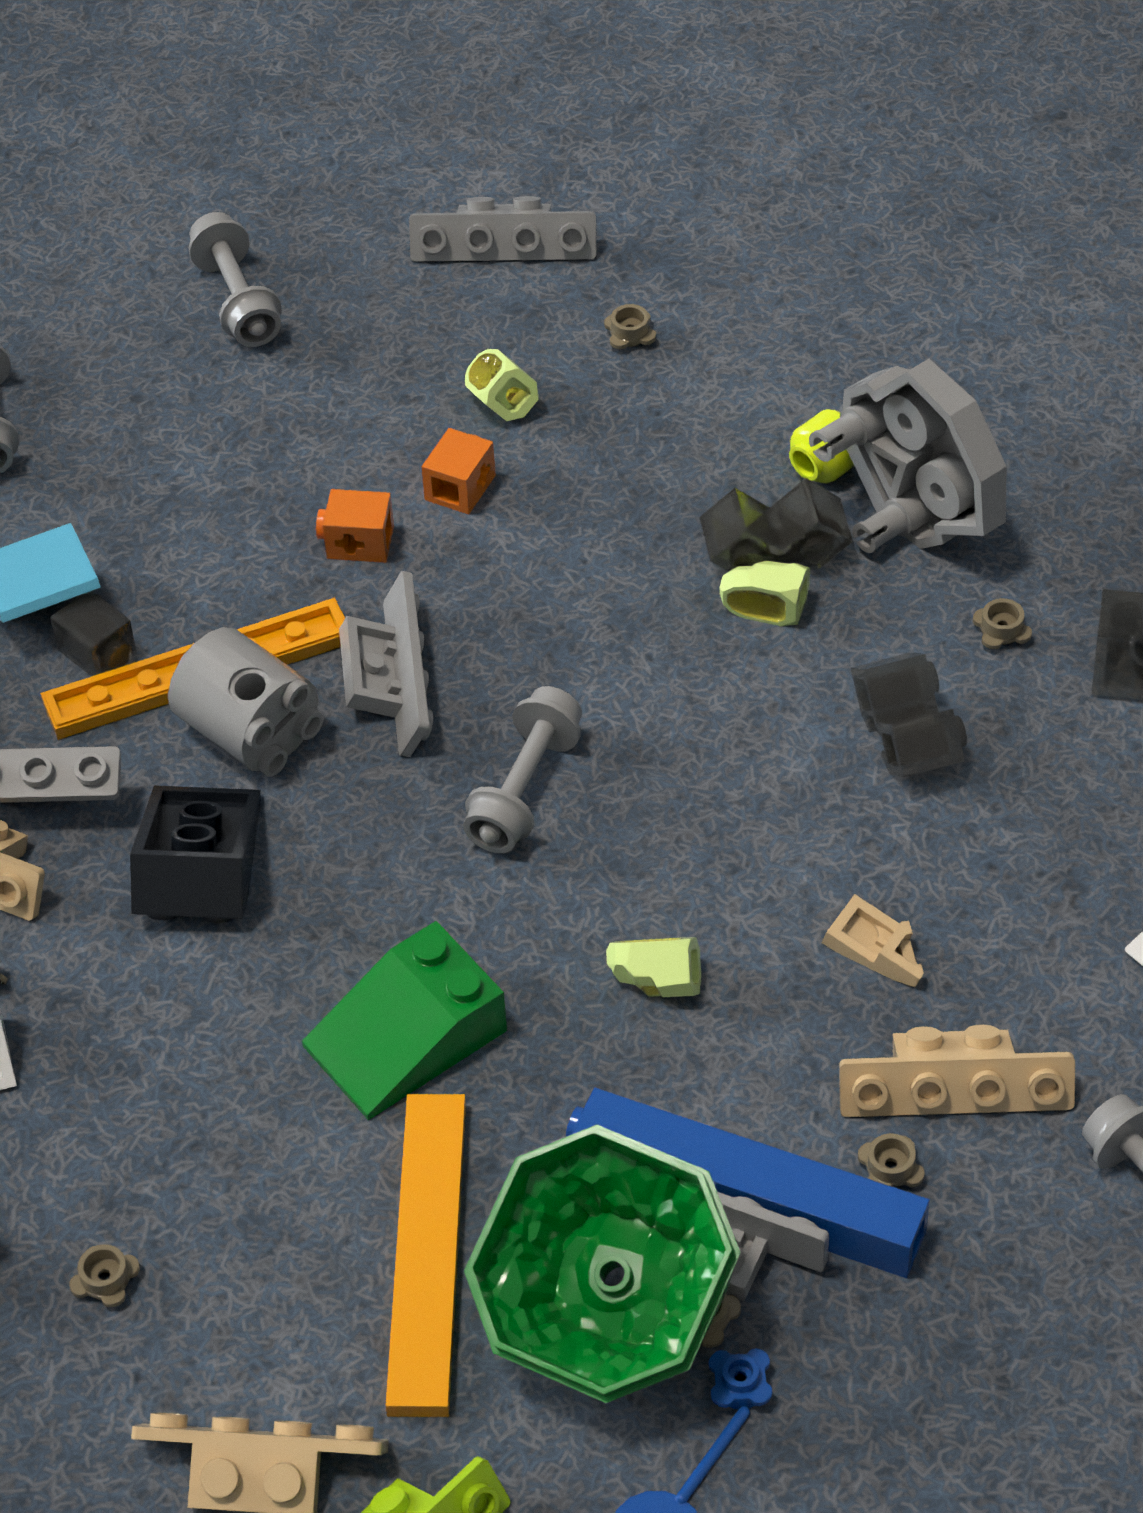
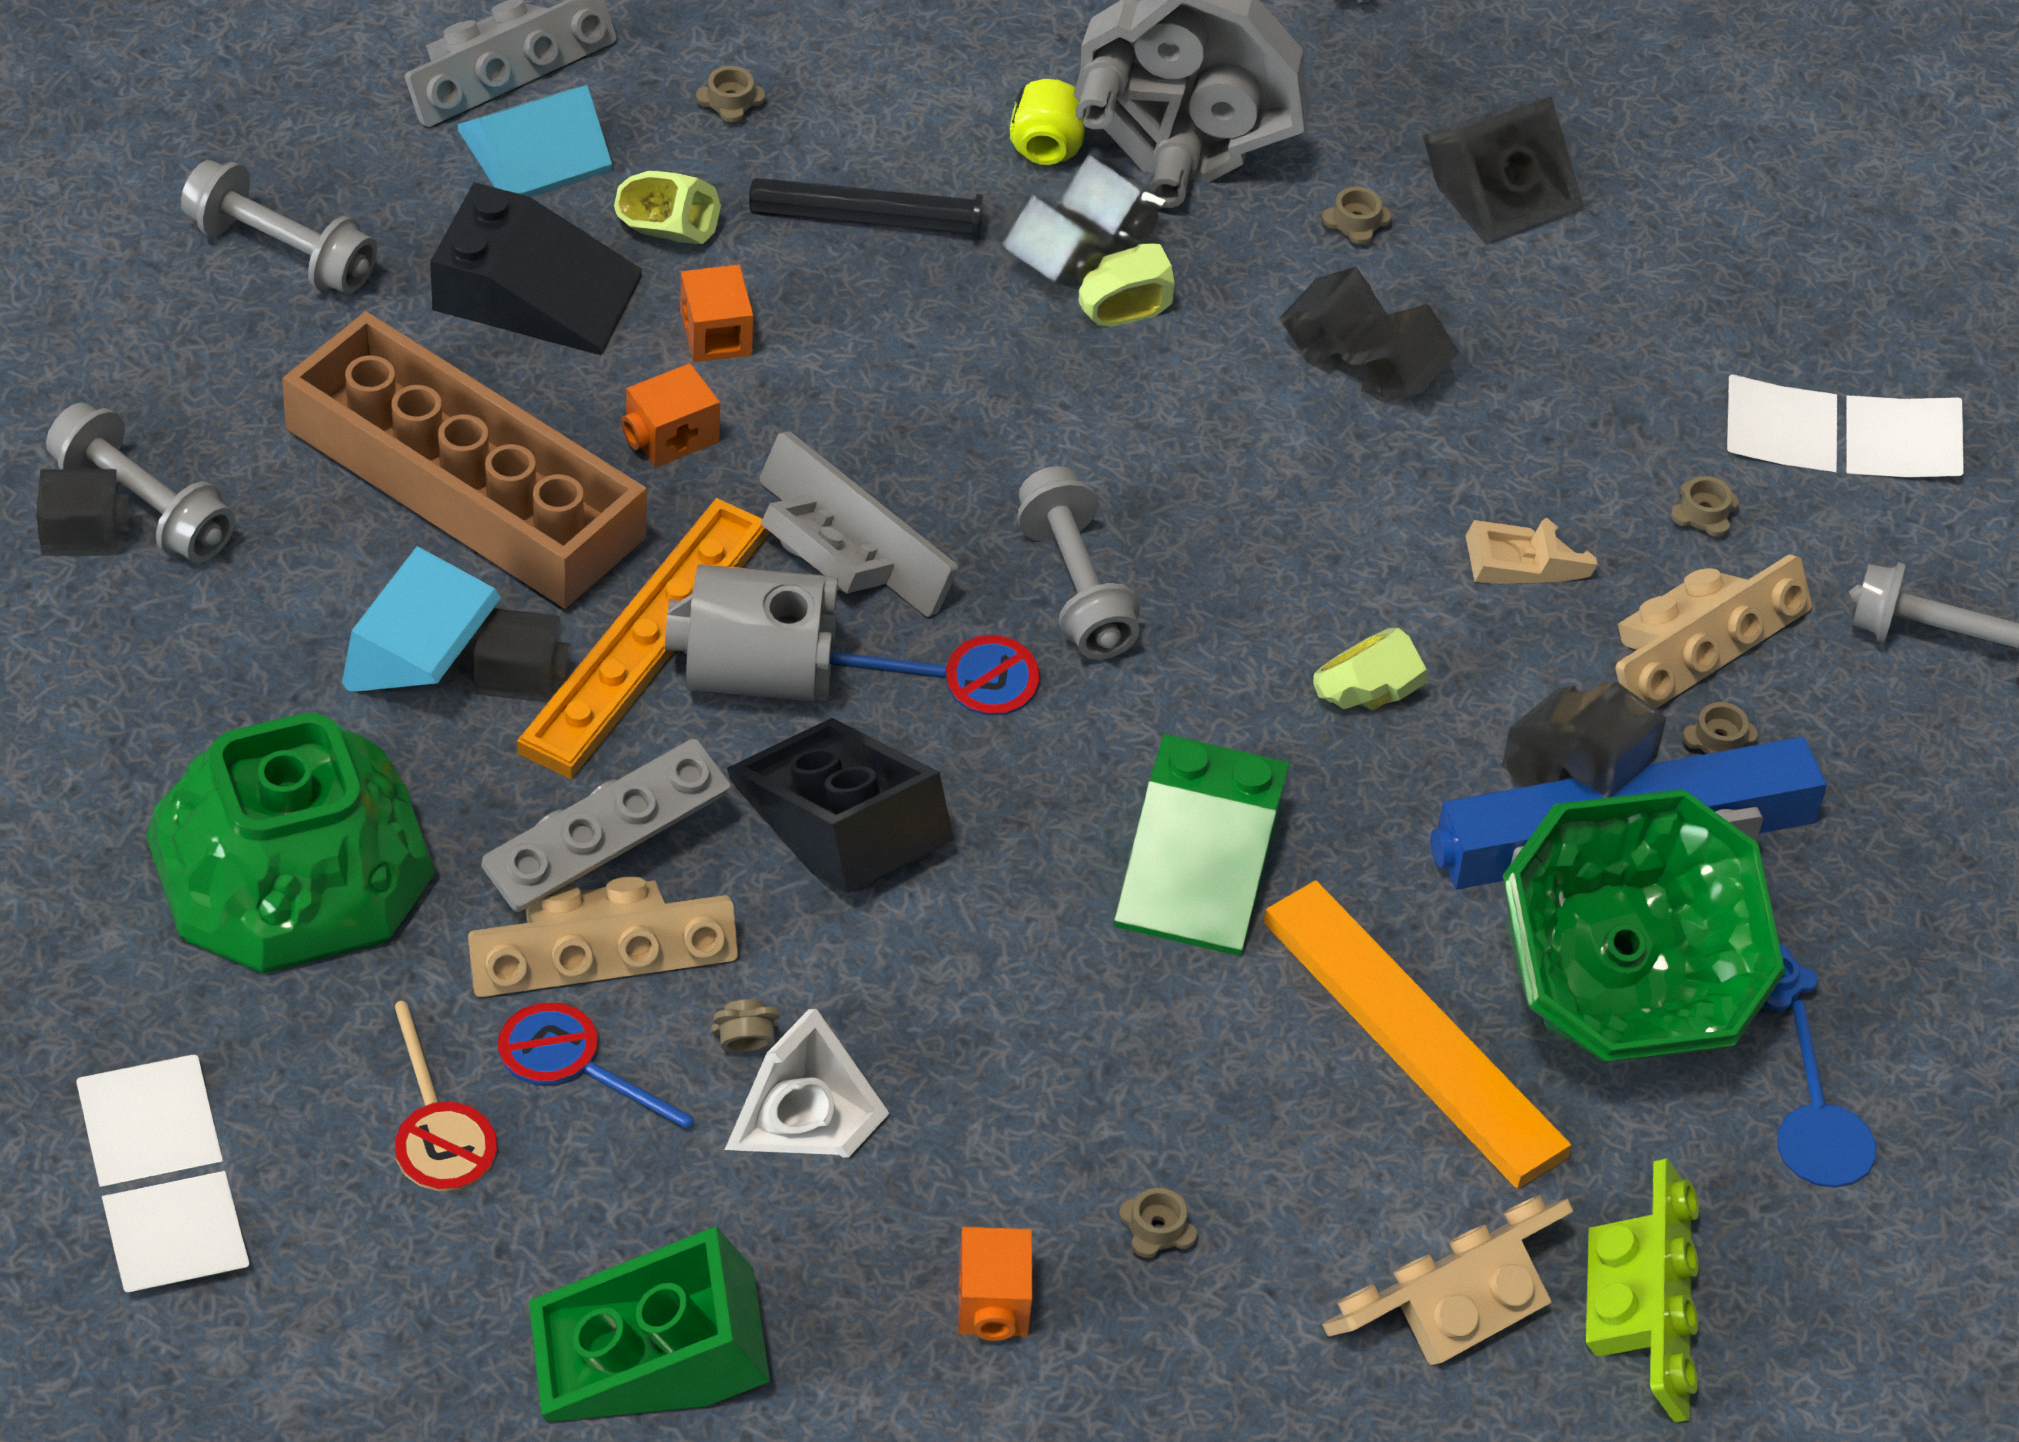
camera: 45 degrees left, 0 degrees up
(188, 488) = (465, 459): none -> medium nougat brick
(366, 384) = (529, 272): none -> black slope
(394, 819) = (982, 674): none -> piece
(464, 303) = (540, 143): none -> medium azure slope
(648, 450) = (867, 206): none -> black axle
(745, 1104) = (1587, 735): none -> clear smoke brick
(1063, 969) = (1705, 505): none -> dark tan plate

